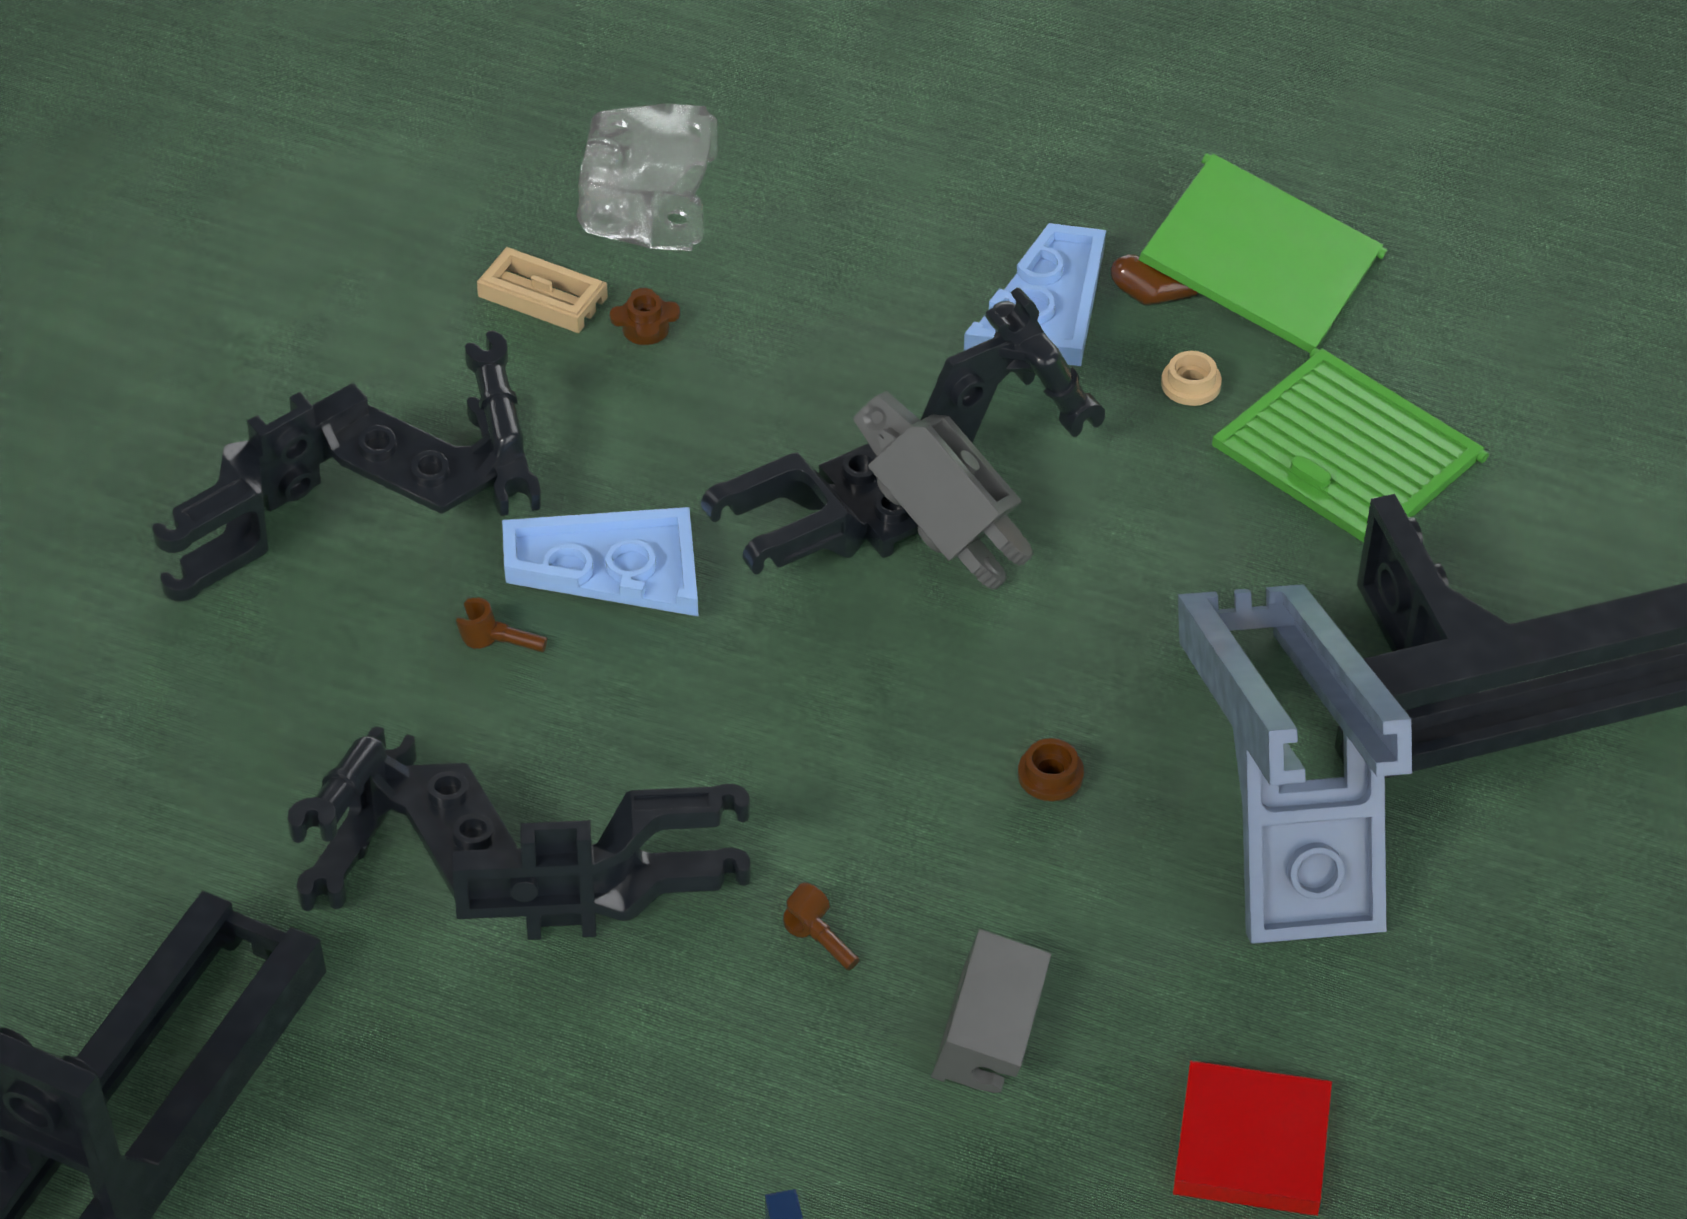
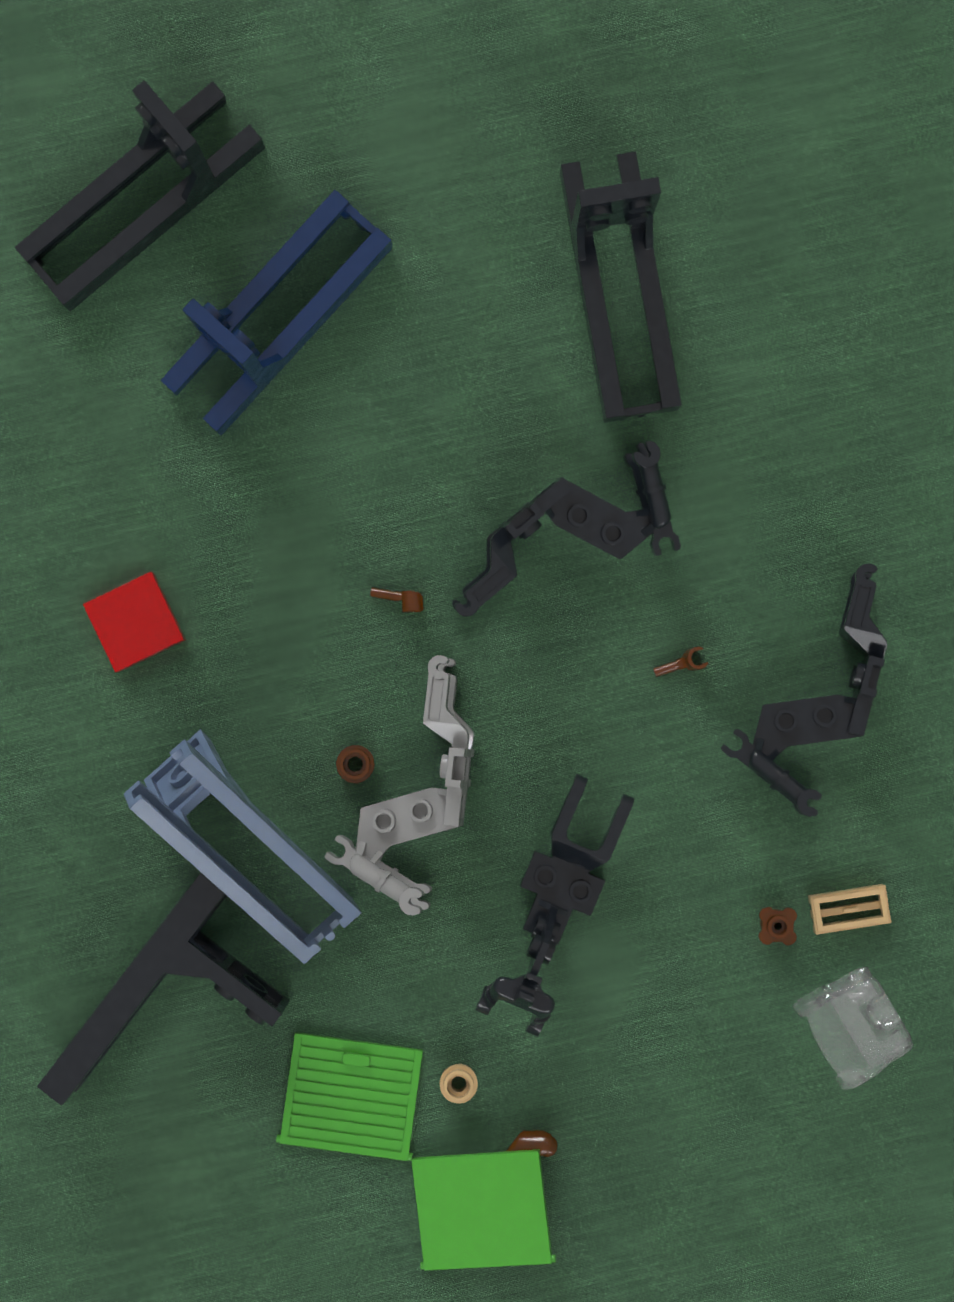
camera: 145 degrees right, 40 degrees up
(610, 556) = (662, 744): light blue wing -> none
(943, 486) = (516, 891): dark grey hinge -> none
(991, 1012) = (286, 600): dark grey hinge -> none
(999, 641) = (418, 812): none -> light grey piece
(1062, 281) = (573, 1090): light blue wing -> none

